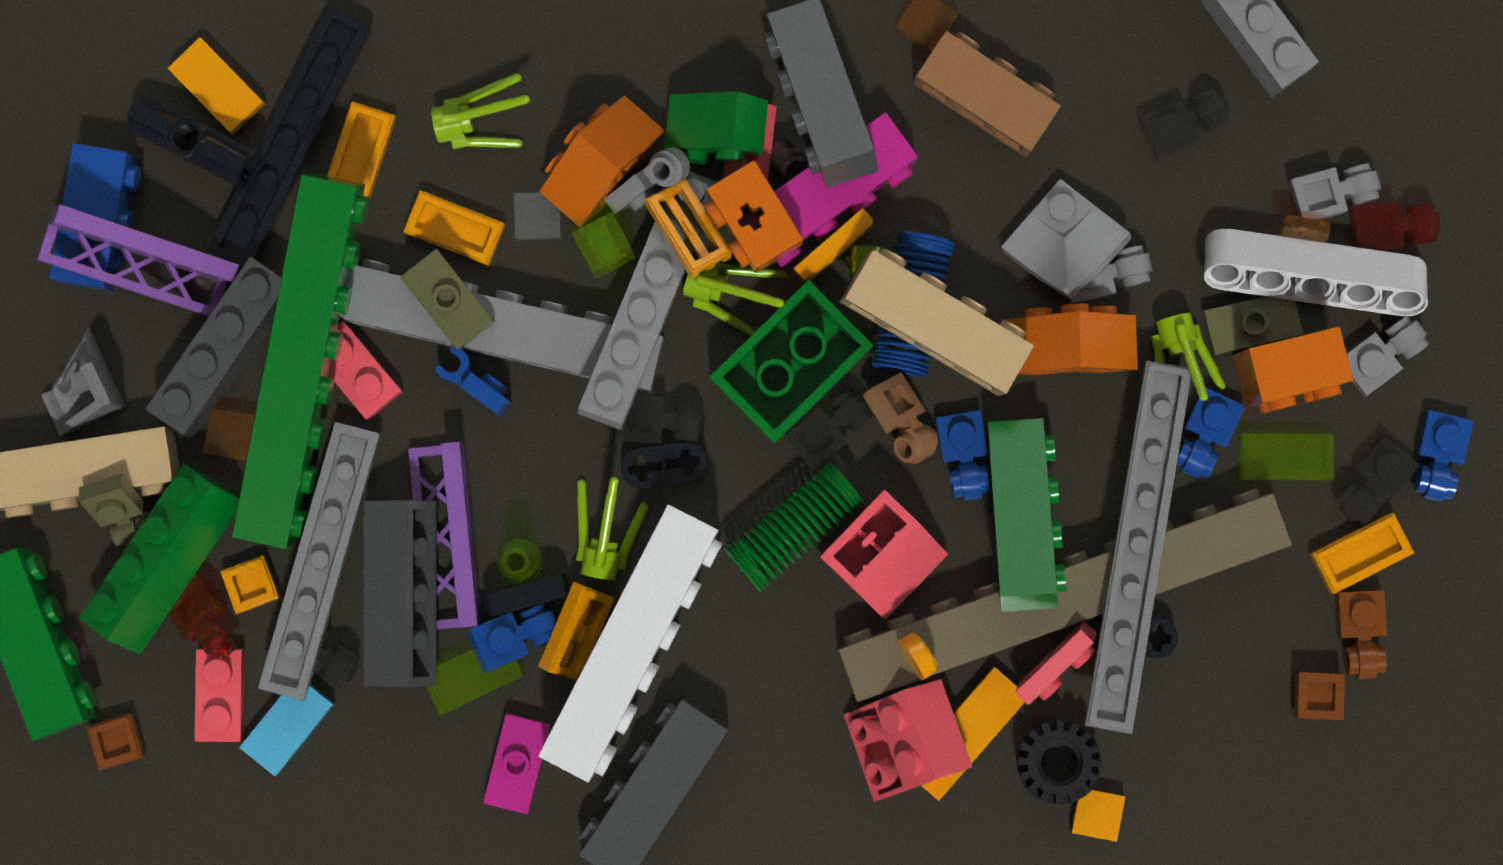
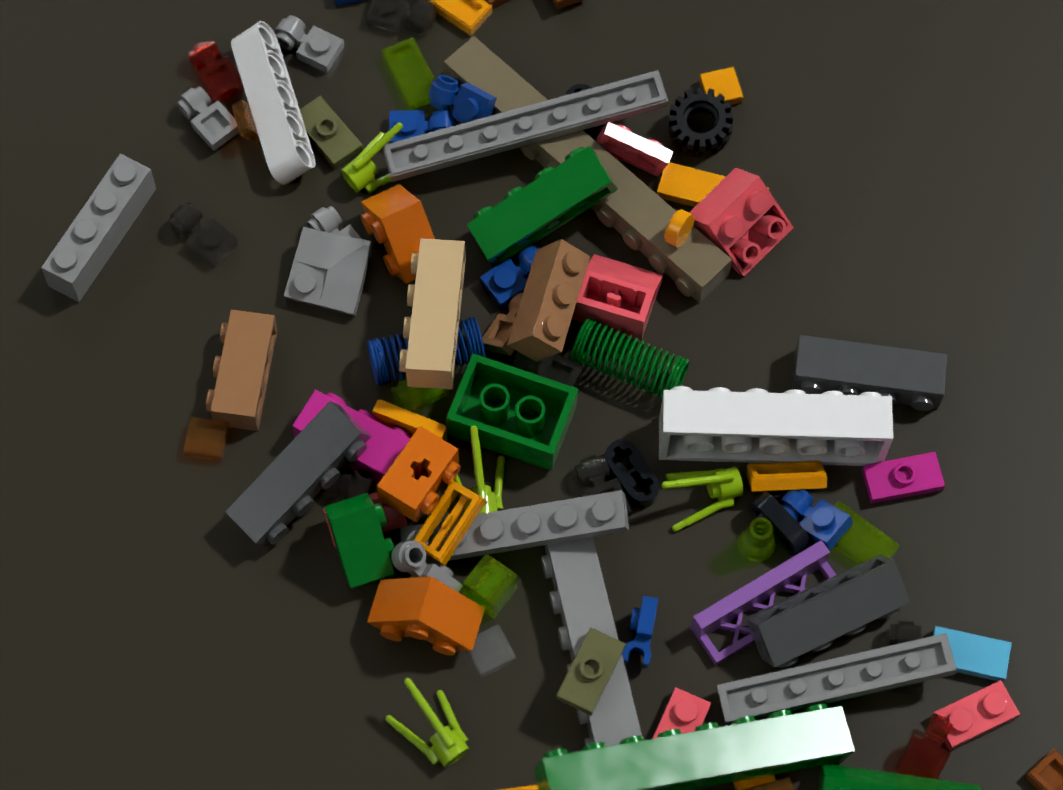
camera: 115 degrees left, 20 degrees down
(250, 584) = (880, 732): light orange tile -> none
(454, 228) = (530, 709): light orange tile -> none
(898, 463) = (548, 300): none -> medium nougat brick
(1203, 499) = (468, 101): none -> blue plate
(1293, 367) = (350, 83): orange brick -> none

